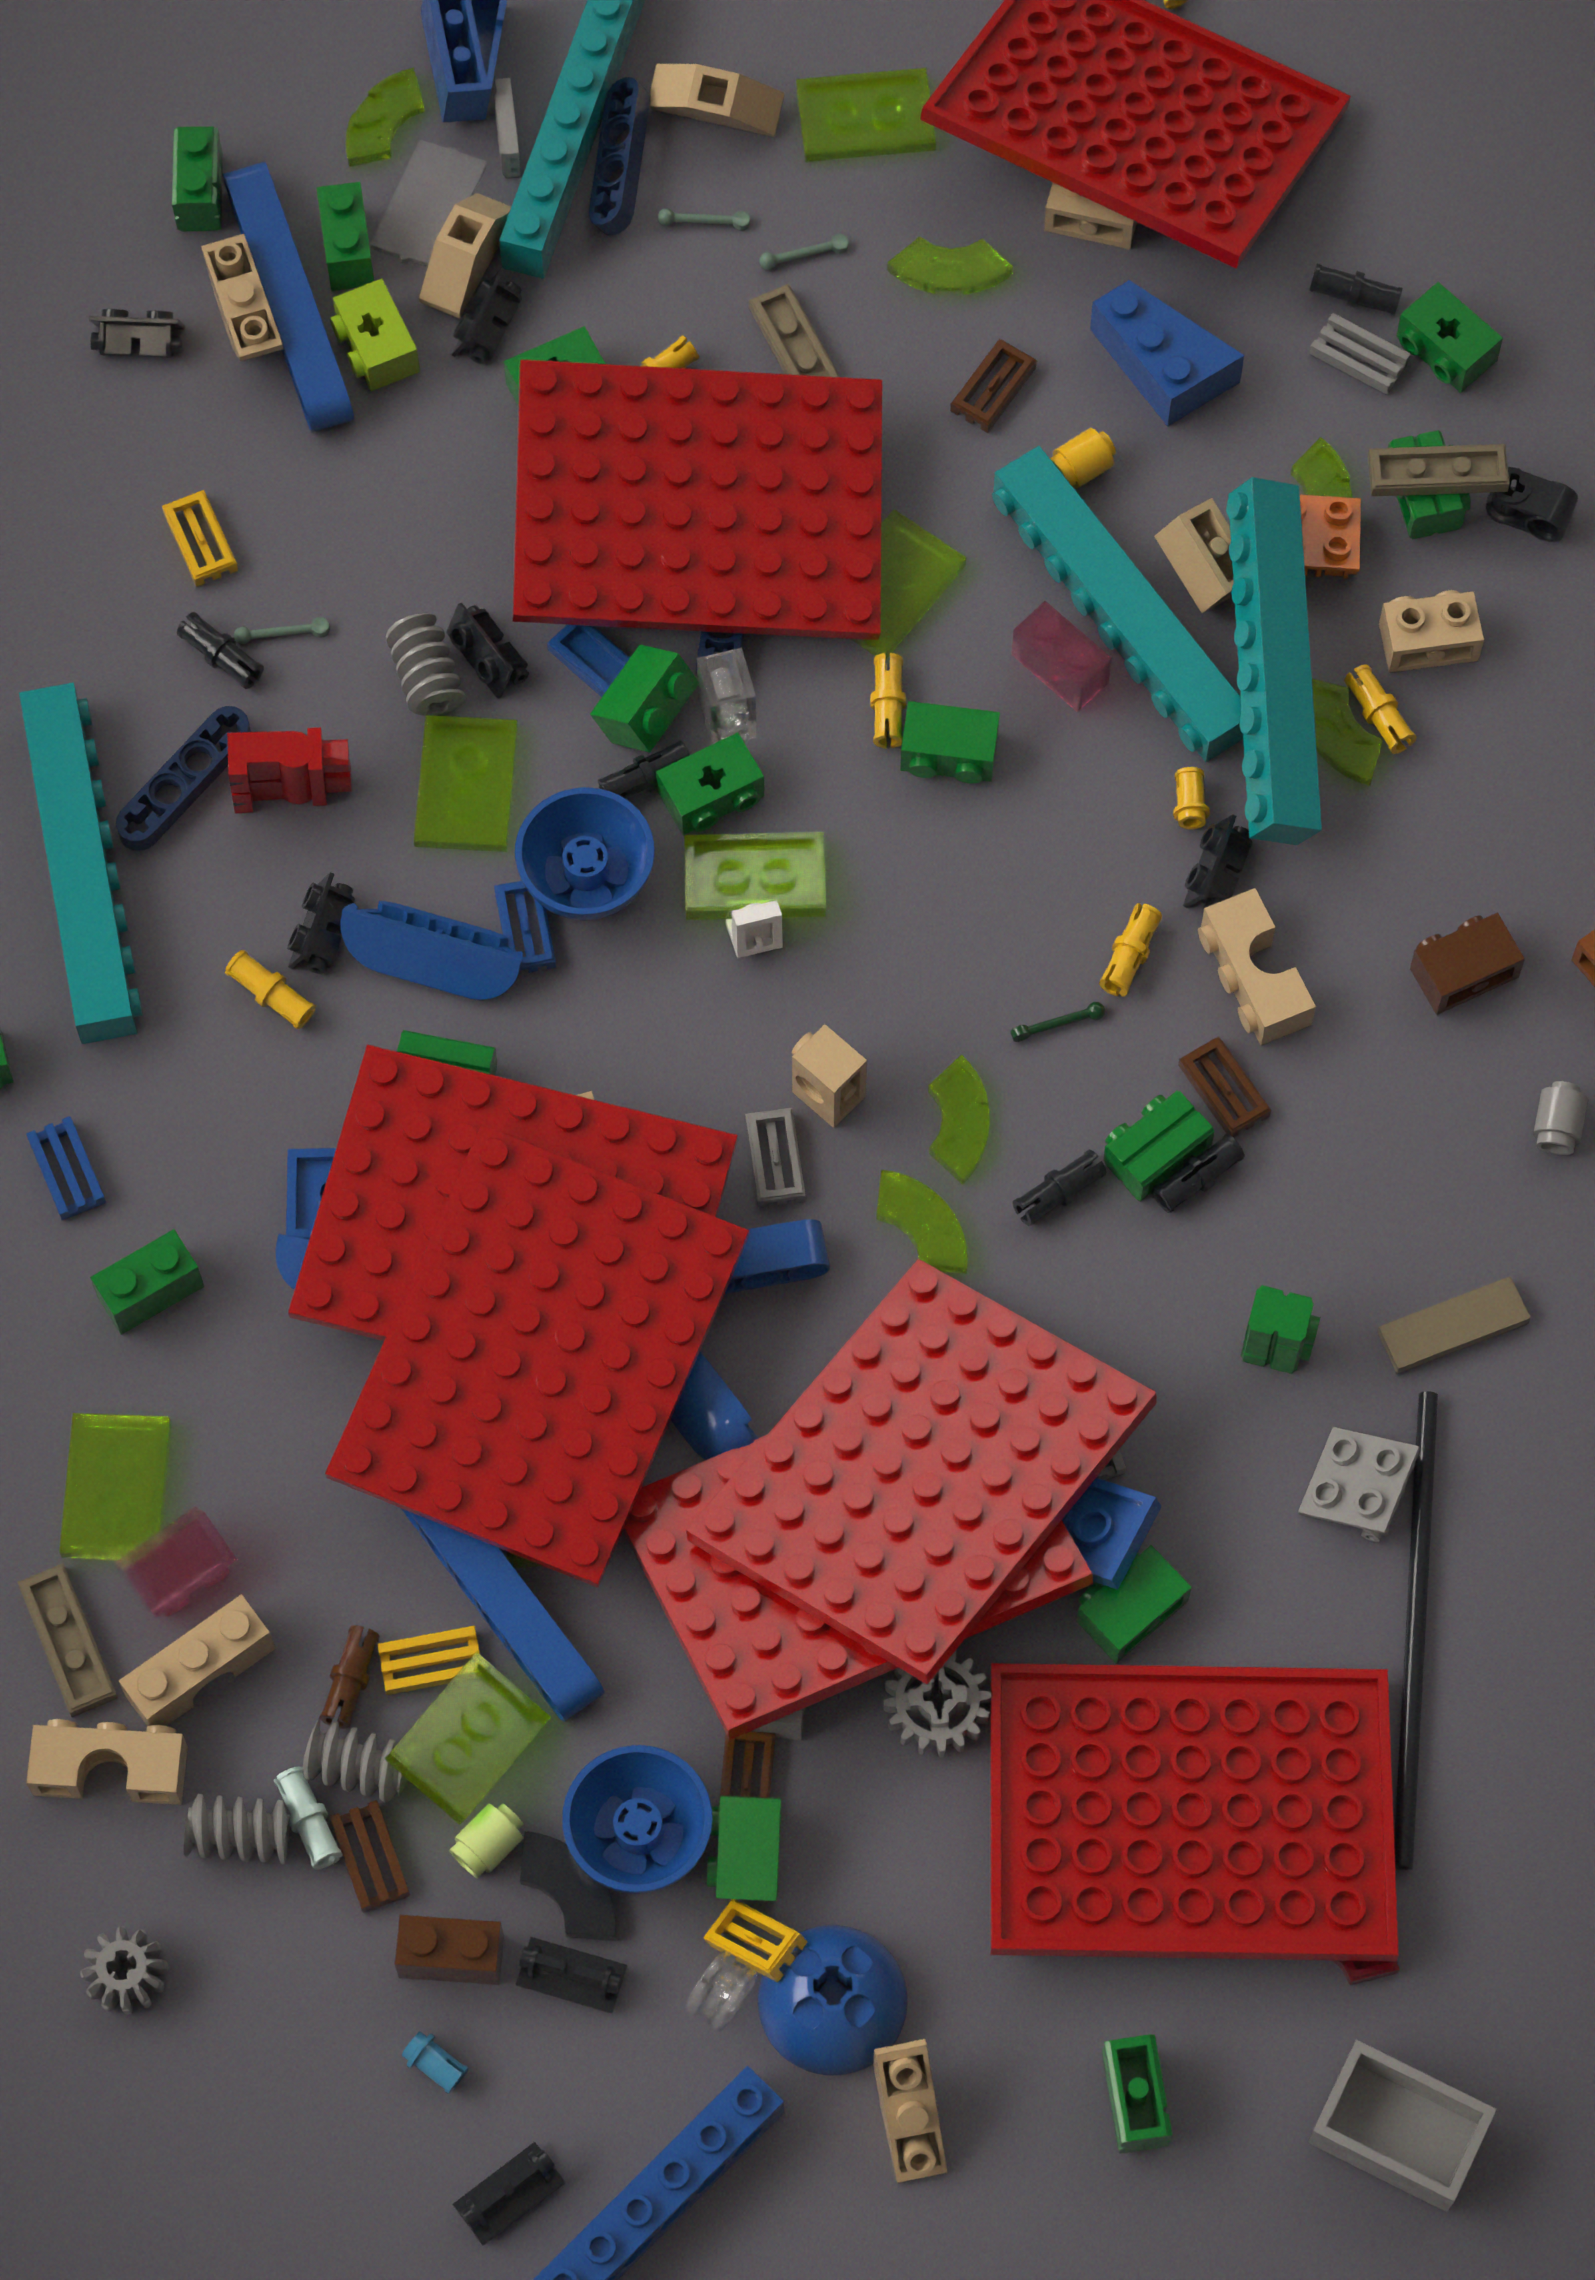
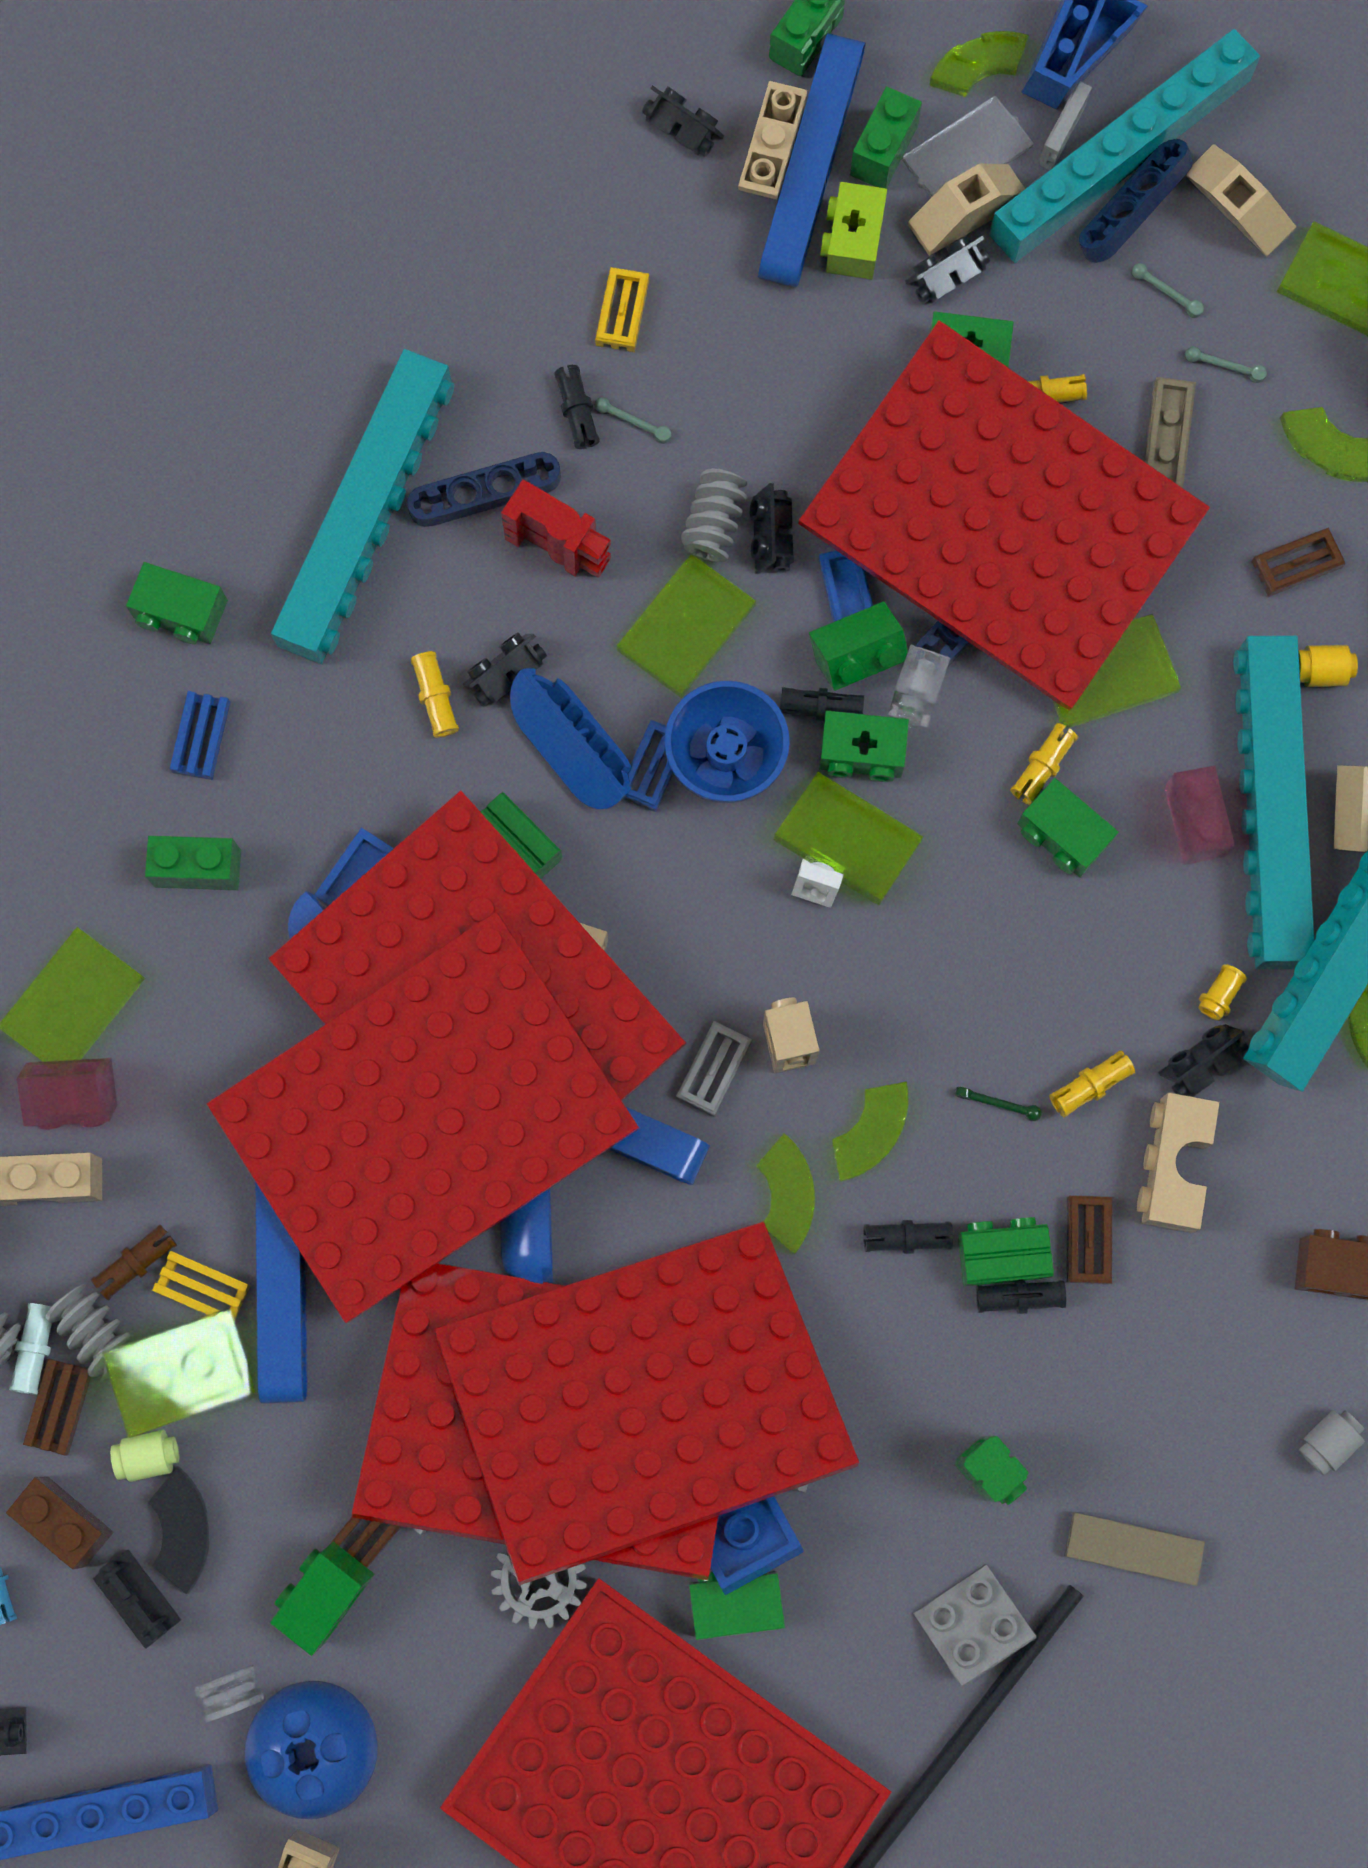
camera: 35 degrees right, 10 degrees up
(627, 1794) = (227, 1517): blue piece -> none
(779, 1954) = (286, 1701): yellow tile -> none

